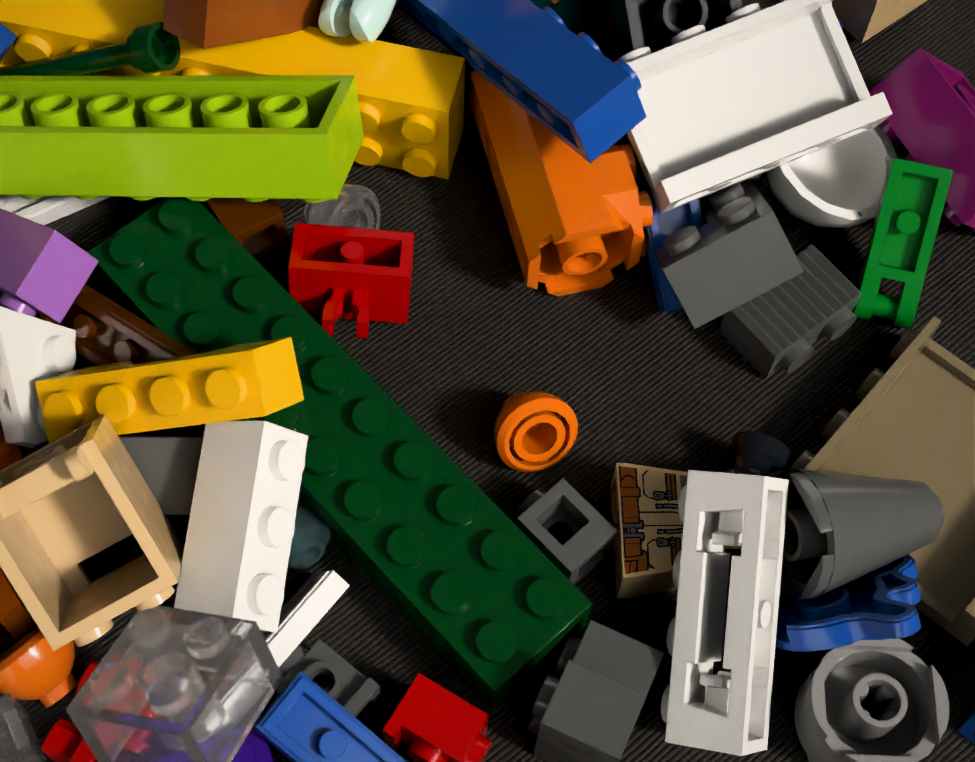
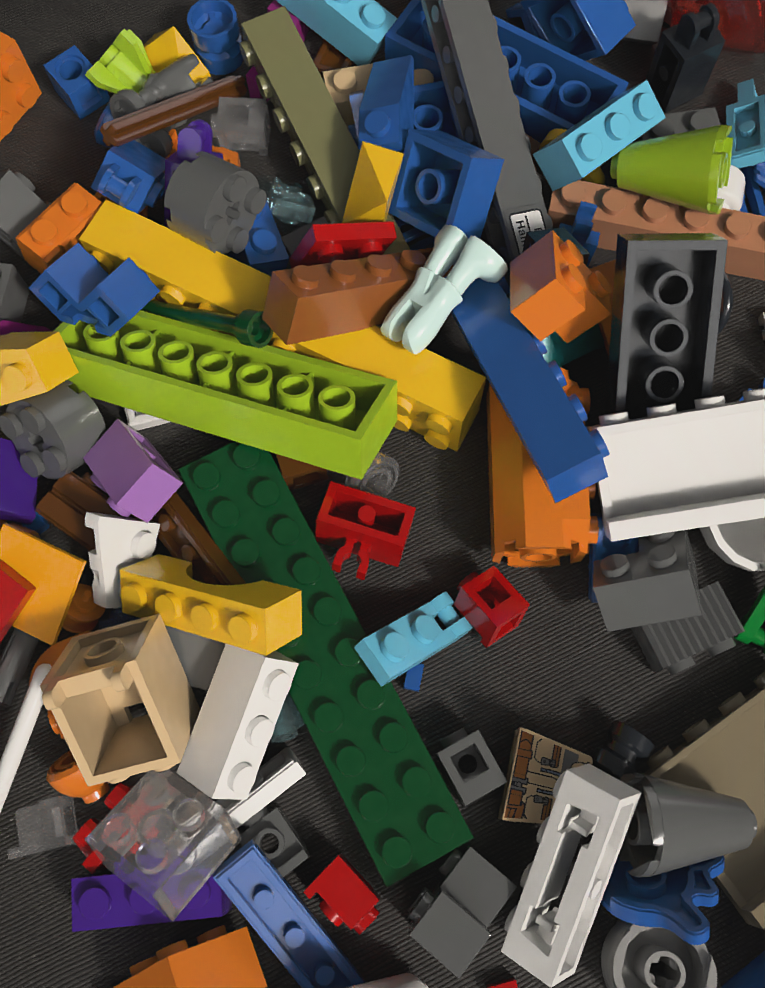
camera: 20 degrees right, 10 degrees up
(449, 391) = (412, 639): none -> medium azure plate
(462, 449) = (413, 678): none -> blue piece
(534, 430) = (467, 678): orange brick -> none
(539, 337) = (490, 604): none -> red brick

